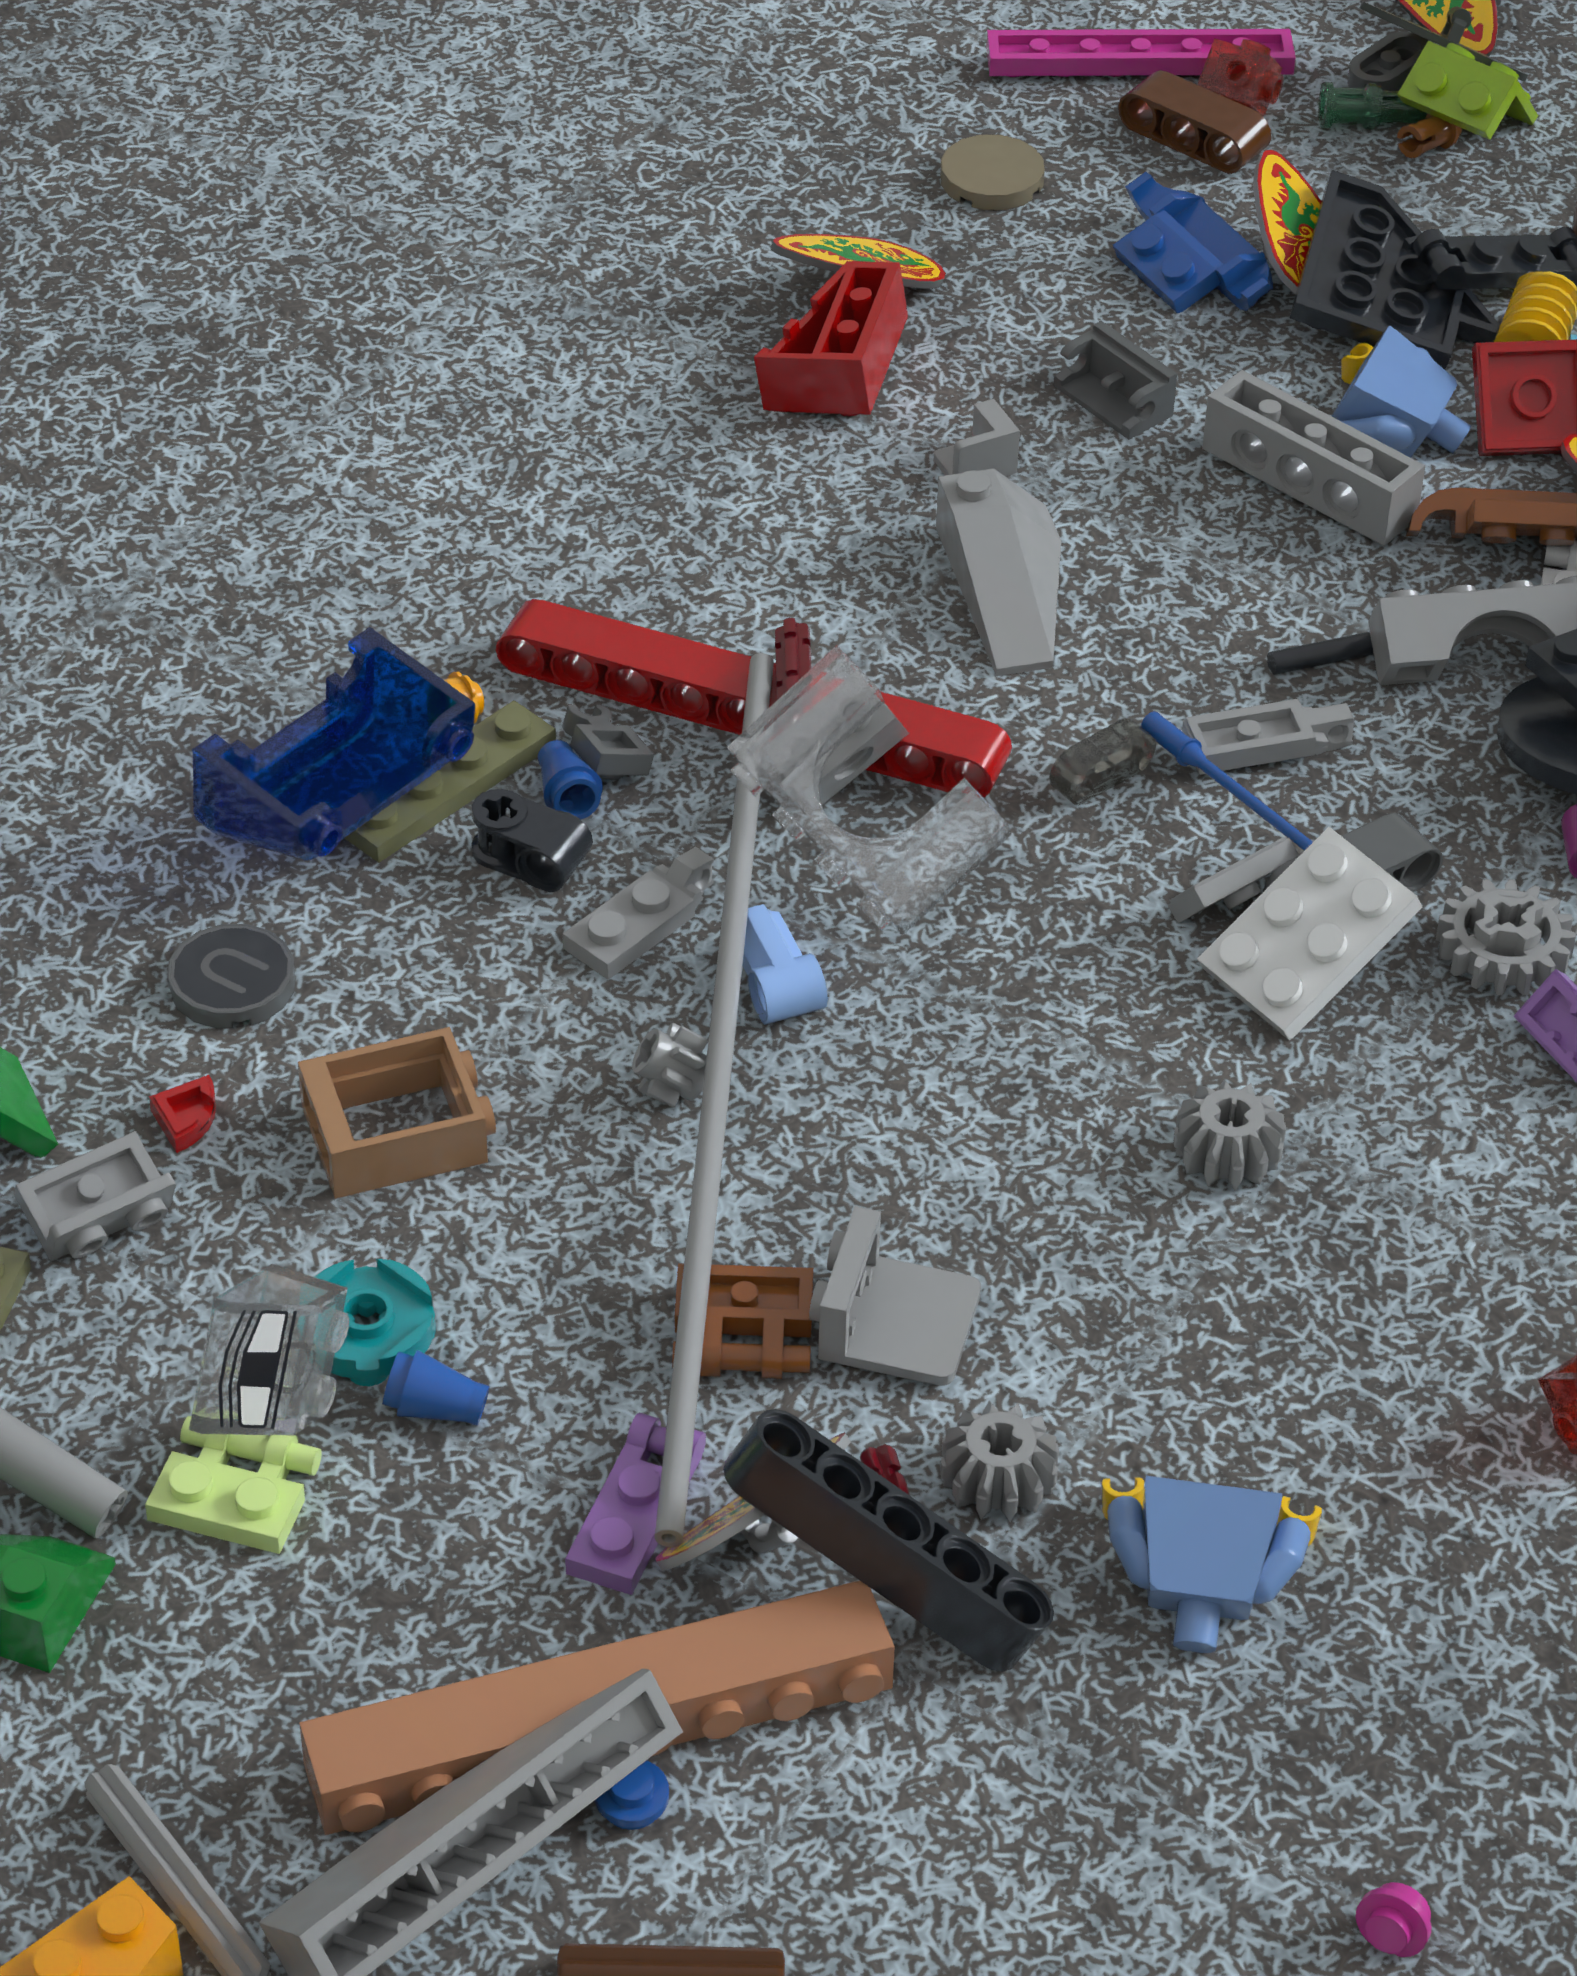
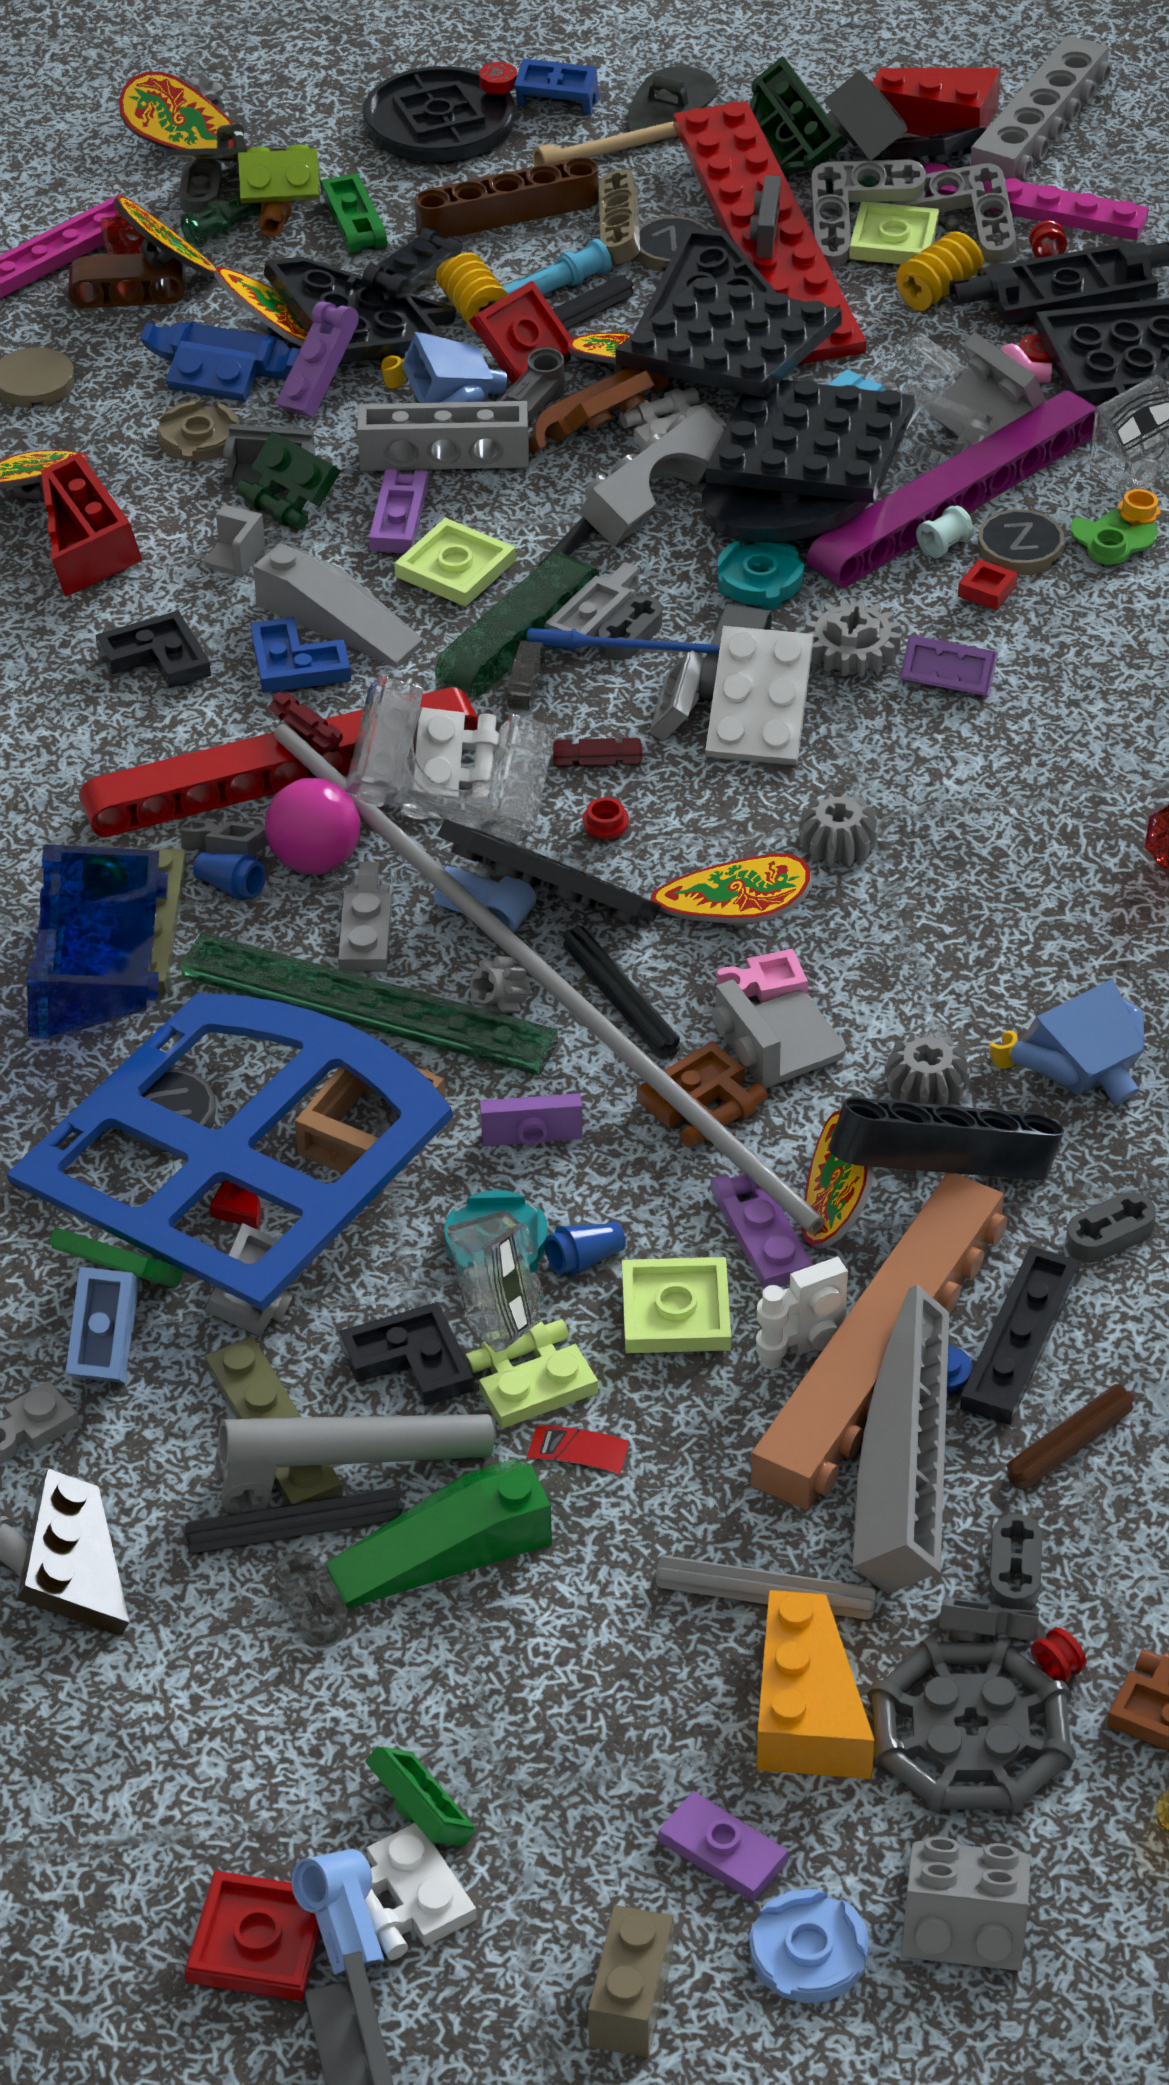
camera: 40 degrees left, 0 degrees up
(155, 1375) = (414, 1341): none -> black plate
(191, 1596) = (578, 1447): none -> red sticker
(201, 1047) = (228, 1151): none -> blue window
(446, 1518) = (676, 1305): none -> yellowish green plate
(530, 844) = (256, 917): black piece -> none
(538, 1223) = (531, 1119): none -> medium lavender plate
(540, 1004) = (371, 1003): none -> clear green plate
(546, 1604) = (814, 1311): none -> white plate
(677, 778) = (312, 826): none -> dark pink piece
(749, 1817) = (1019, 1335): none -> black plate
(782, 506) = (158, 640): none -> black plate
(799, 1157) = (621, 992): none -> black axle
(844, 965) = (546, 872): none -> black wing
(886, 601) = (288, 665): none -> blue plate
(906, 783) = (440, 746): none -> white plate
(960, 1244) = (767, 975): none -> bright pink plate
(997, 1776) = (1113, 1231): none -> dark grey beam
(1004, 964) = (605, 818): none -> red plate
(1034, 1127) = (738, 890): none -> shield
(1060, 322) = (202, 439): none -> dark tan tile
(1074, 706) = (491, 643): none -> clear green beam
(1085, 889) = (597, 752): none -> dark red axle
(1111, 404) = (293, 468): none -> dark green plate
(1177, 599) = (455, 562): none -> yellowish green plate
(1186, 511) = (398, 511): none -> medium lavender plate
(1249, 89) = (161, 236): none -> shield
(1269, 301) = (318, 358): none -> medium lavender plate
(1285, 777) = (622, 622): none -> dark grey beam
(1487, 828) = (741, 576): none -> teal plate
(1500, 461) = (540, 382): none -> dark grey piece
(1517, 175) = (353, 213): none -> green plate

